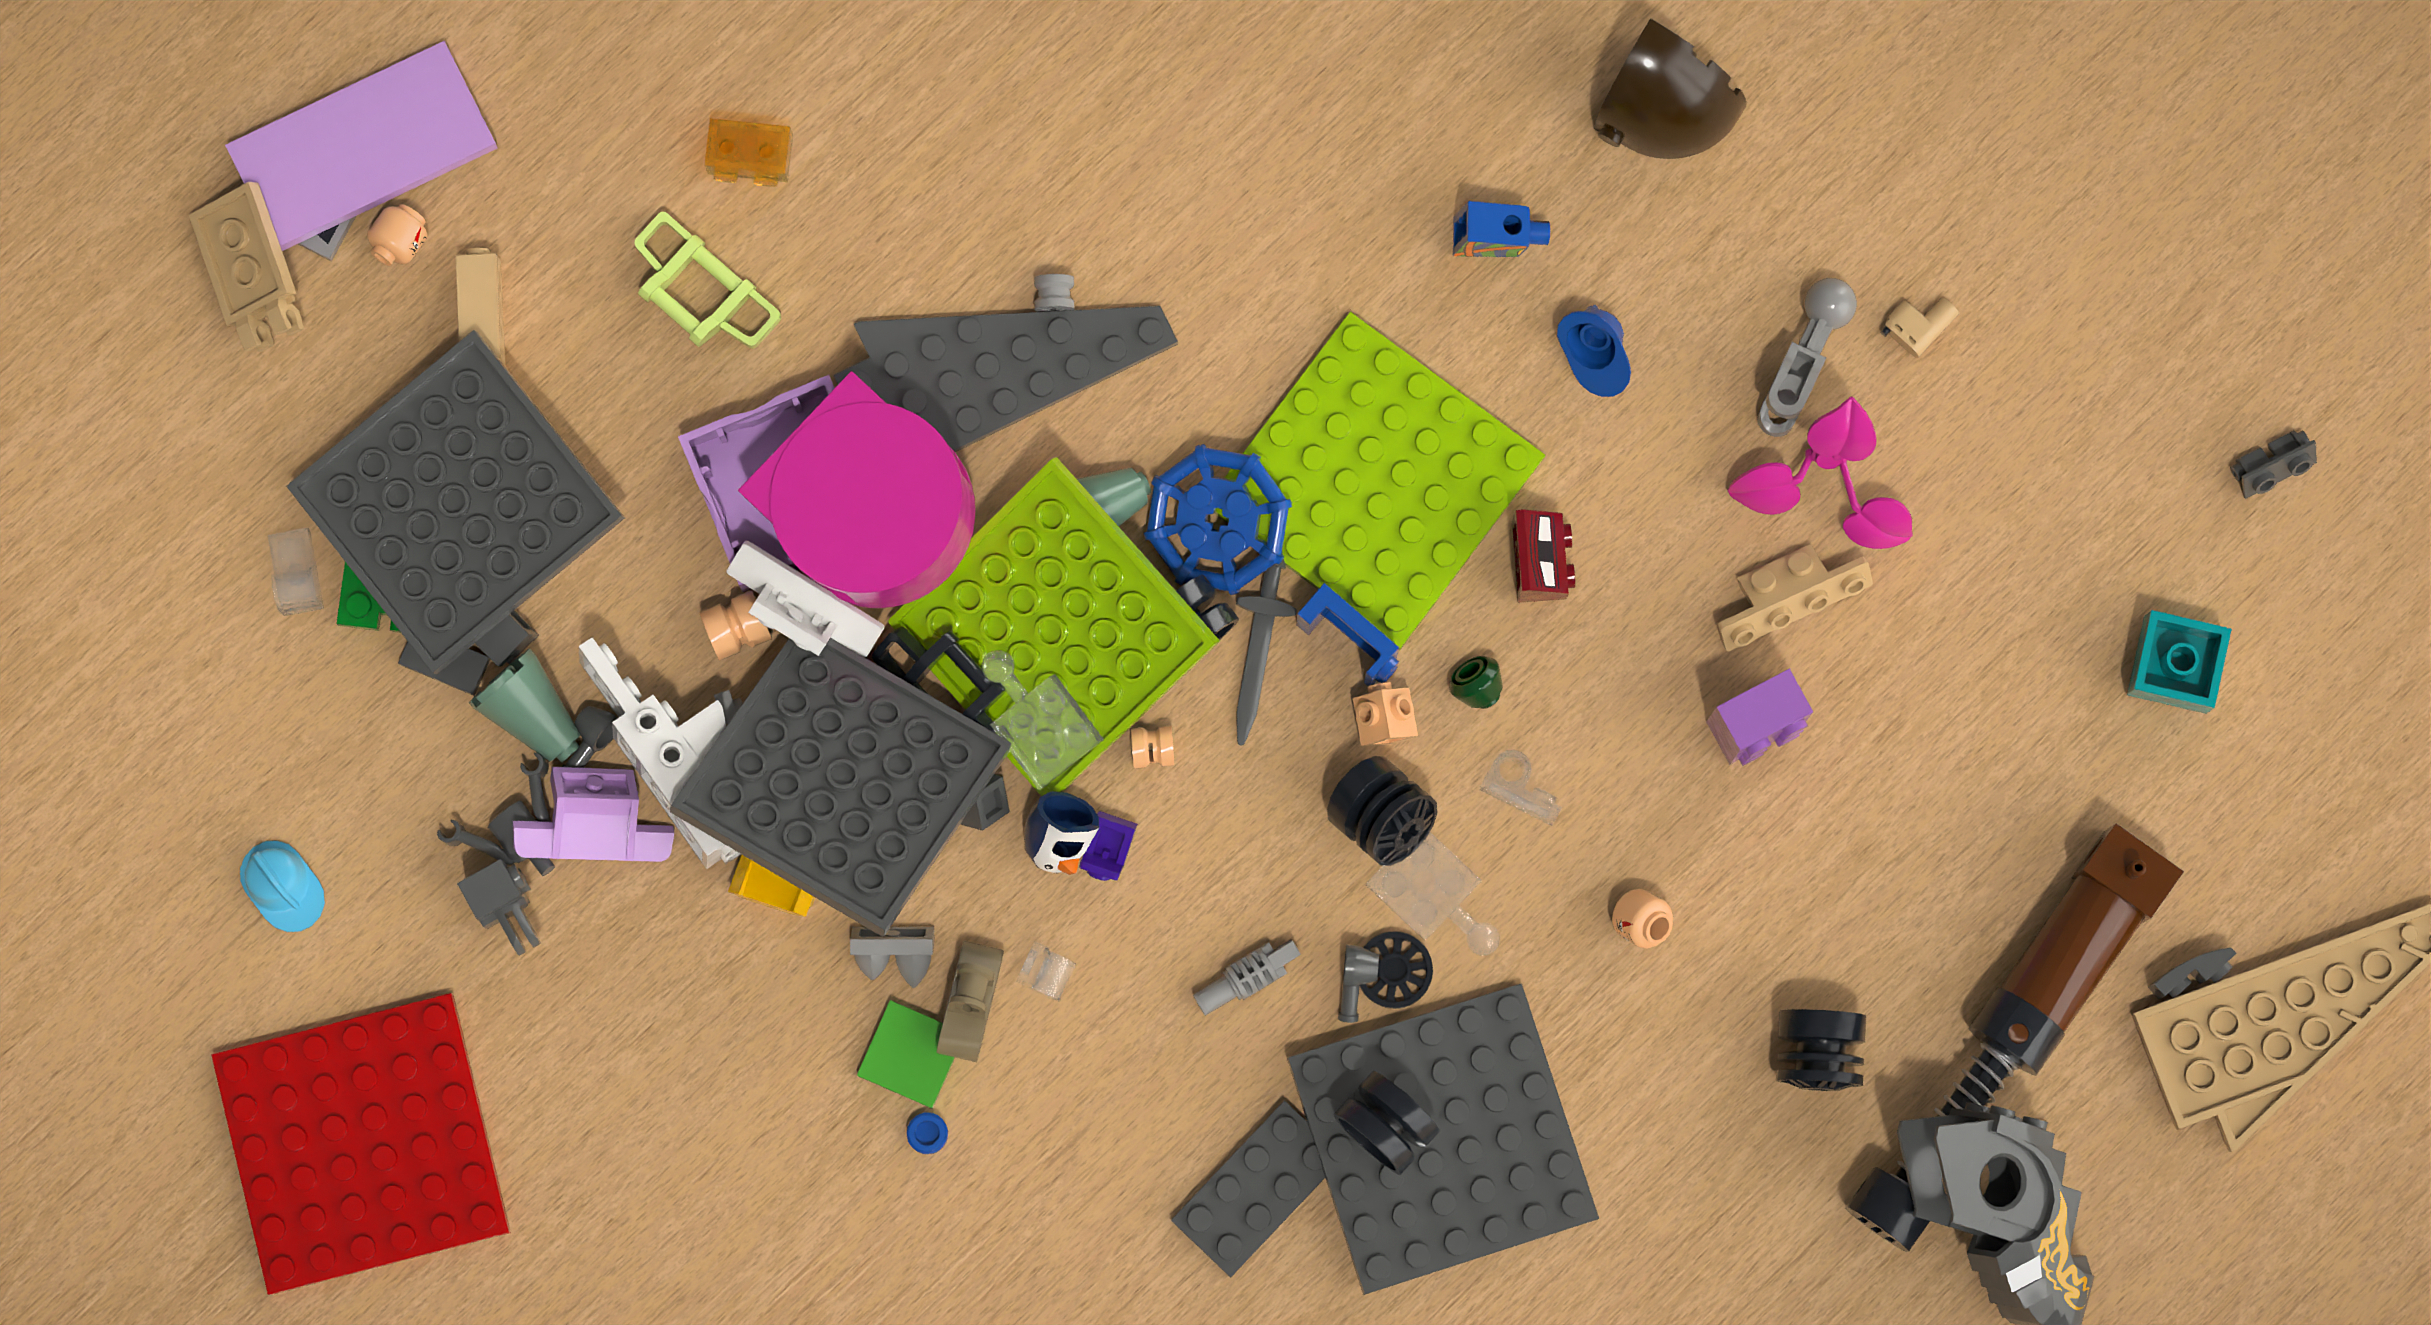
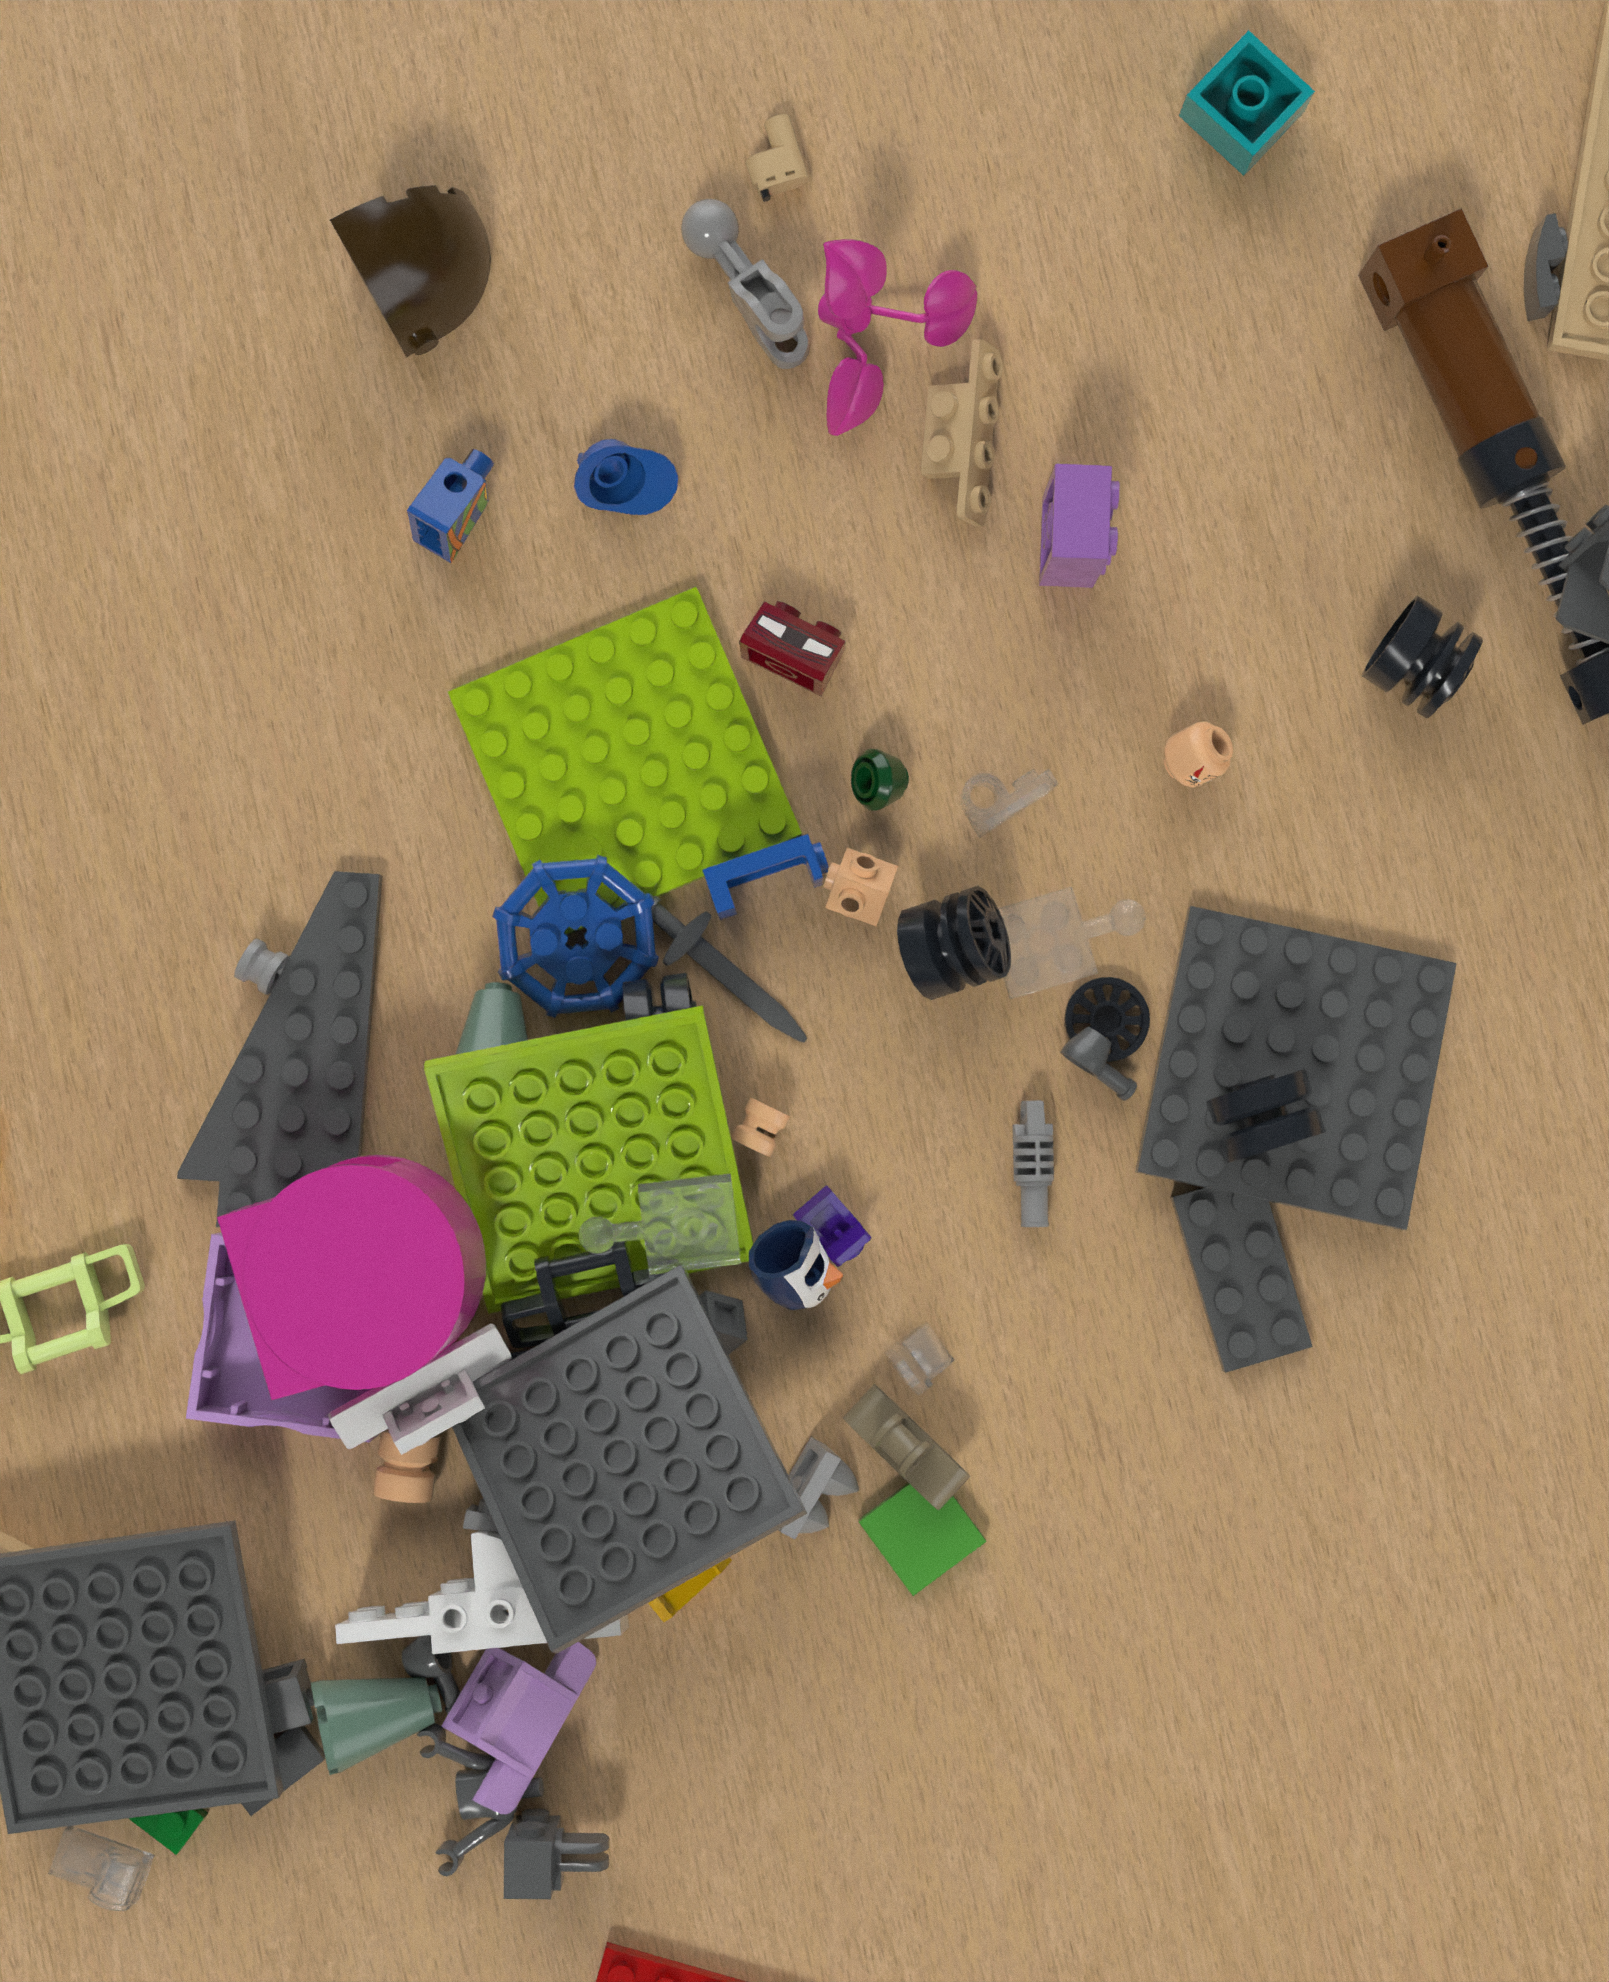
camera: 60 degrees left, 5 degrees up
(927, 1133) = (1007, 1558): blue tile -> none

